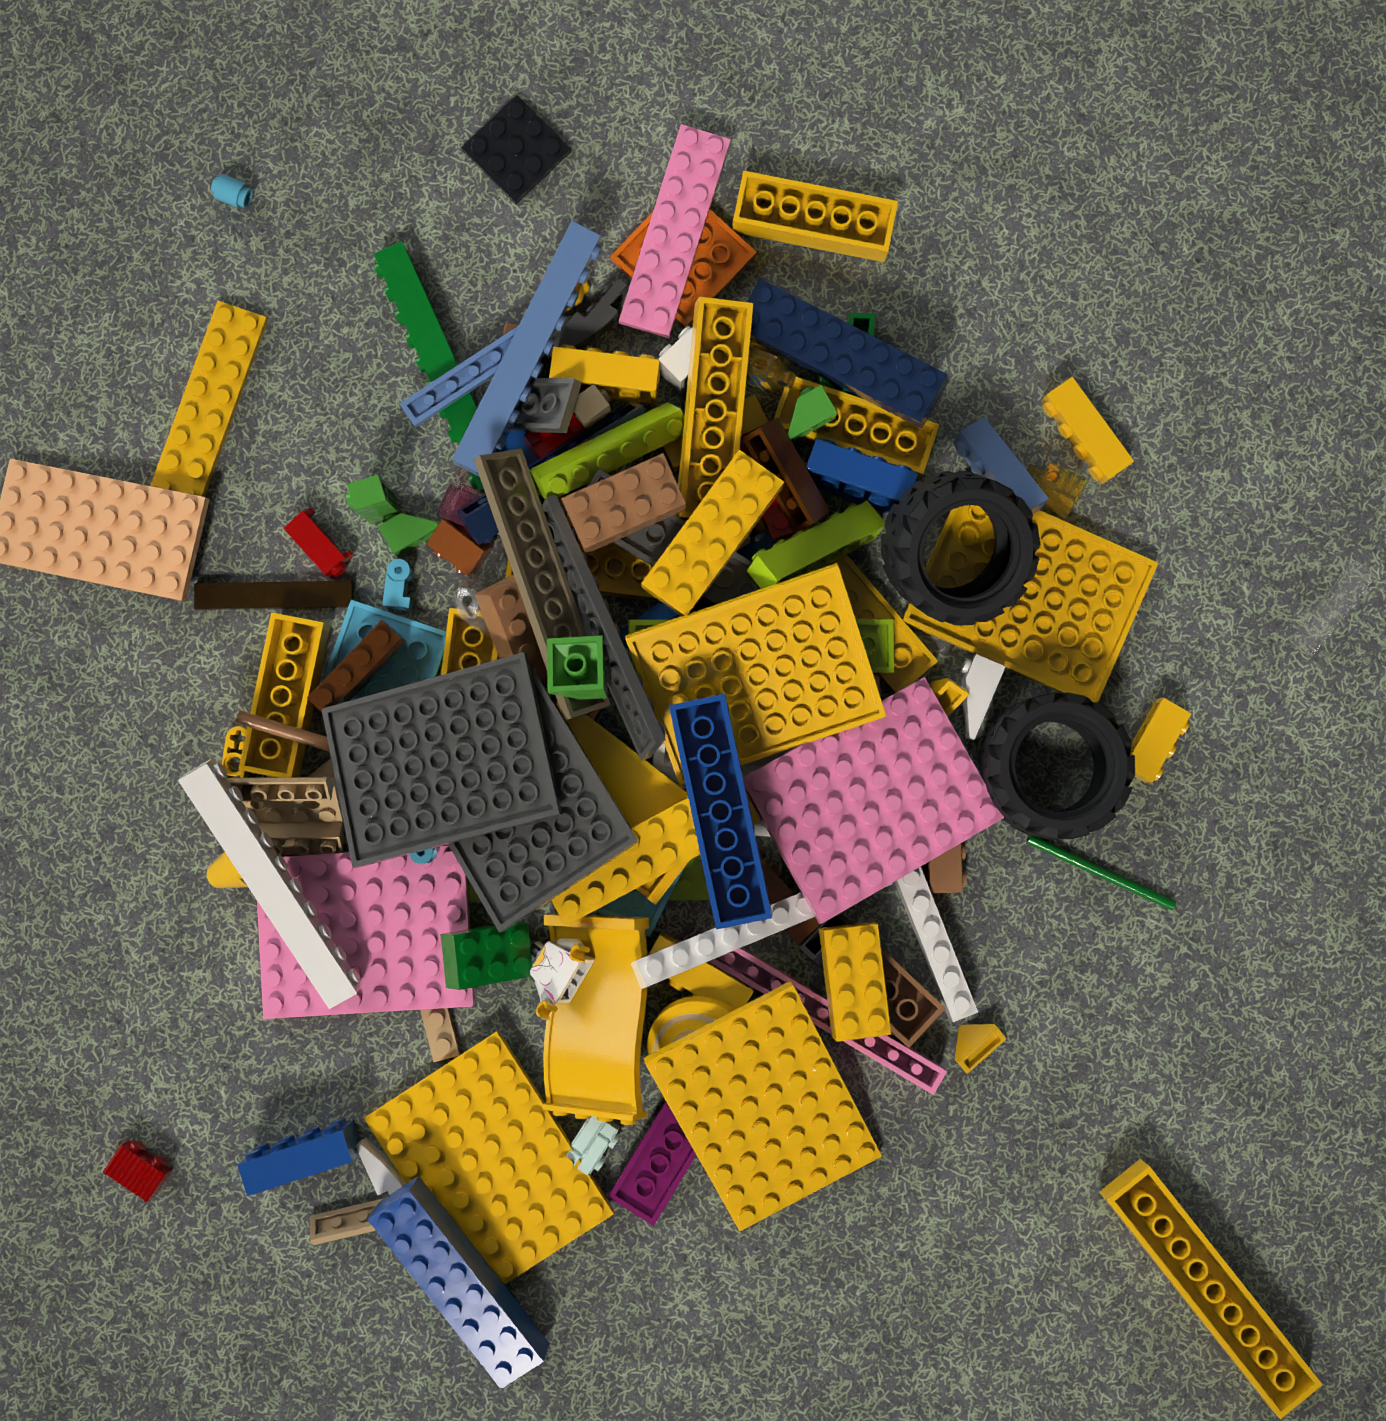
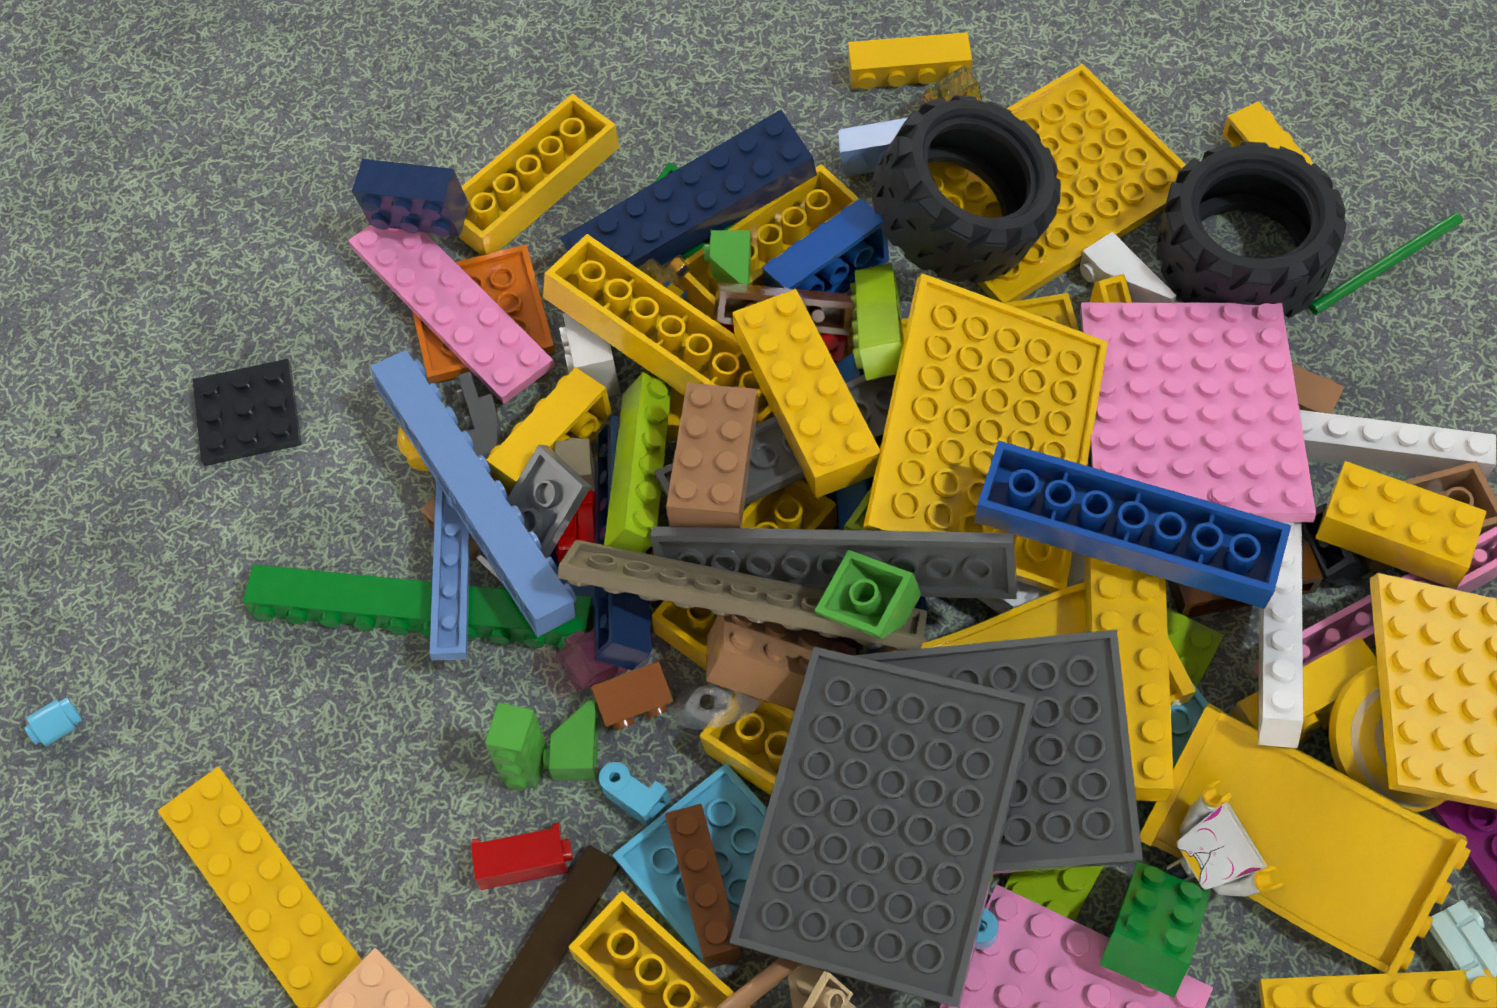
camera: 55 degrees left, 25 degrees down
(723, 150) = (411, 197): none -> dark blue brick

